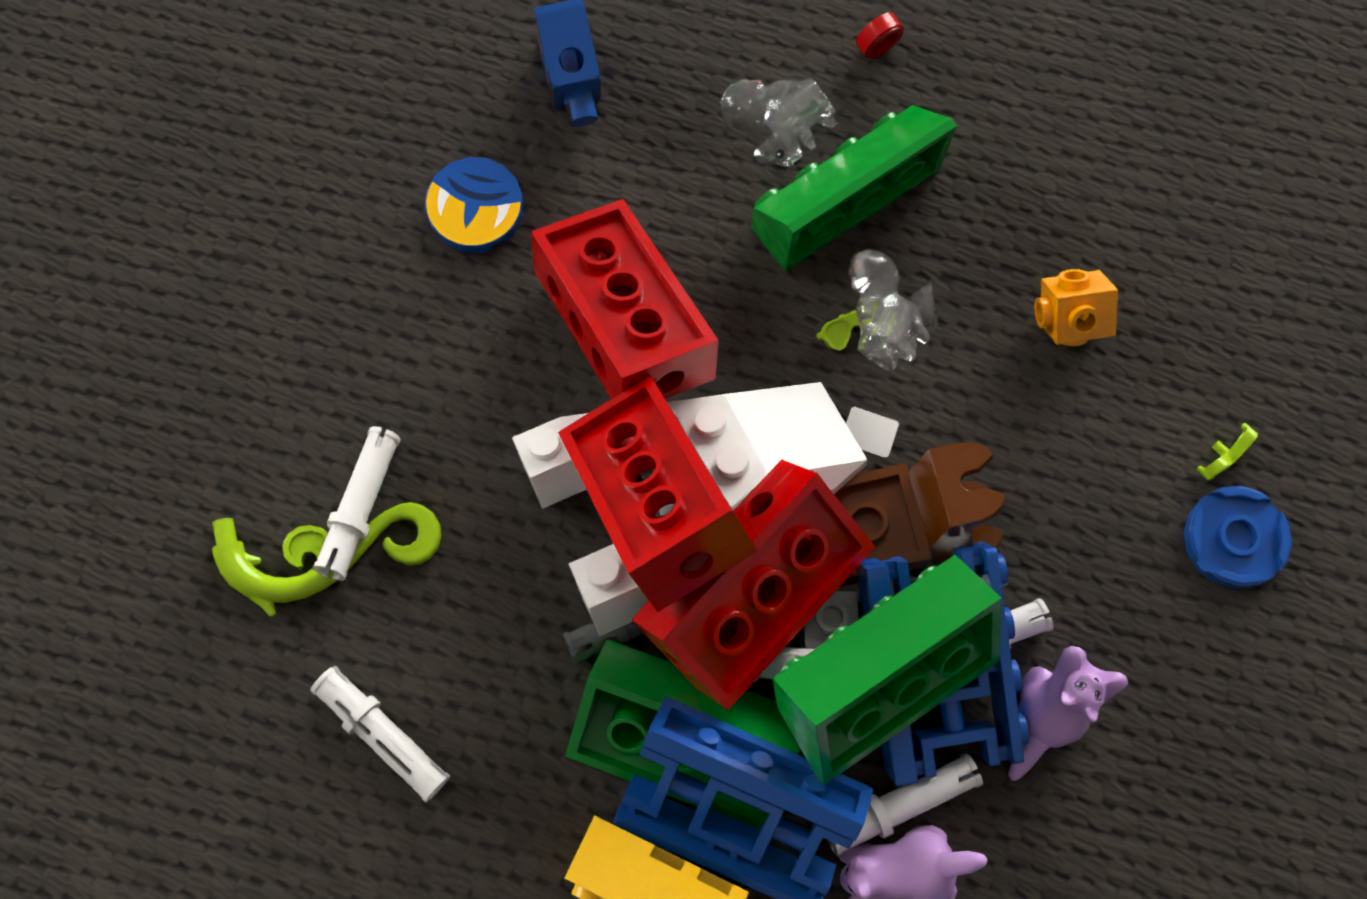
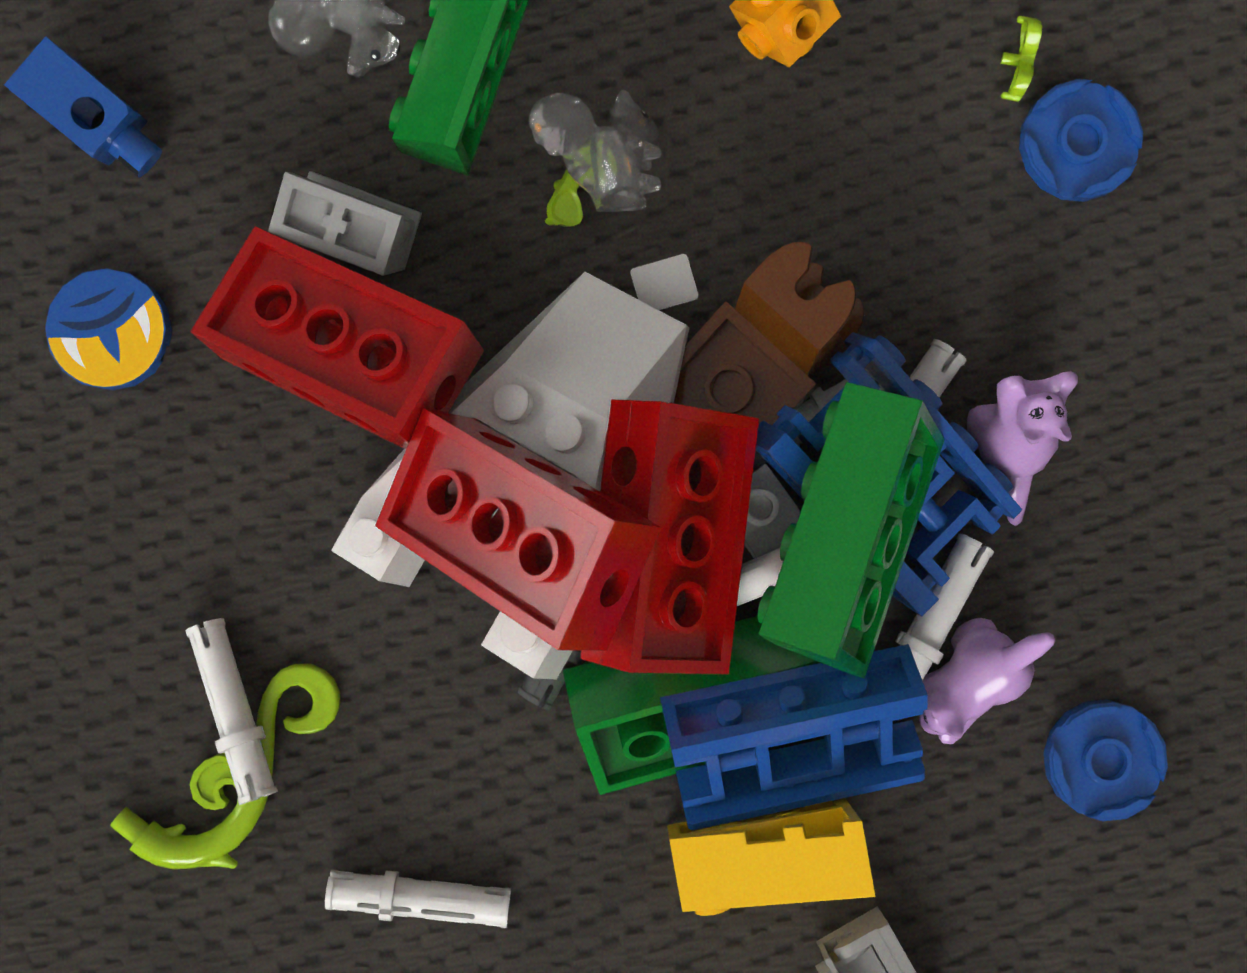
camera: 30 degrees left, 15 degrees up
(683, 239) = (344, 222): none -> light grey hinge

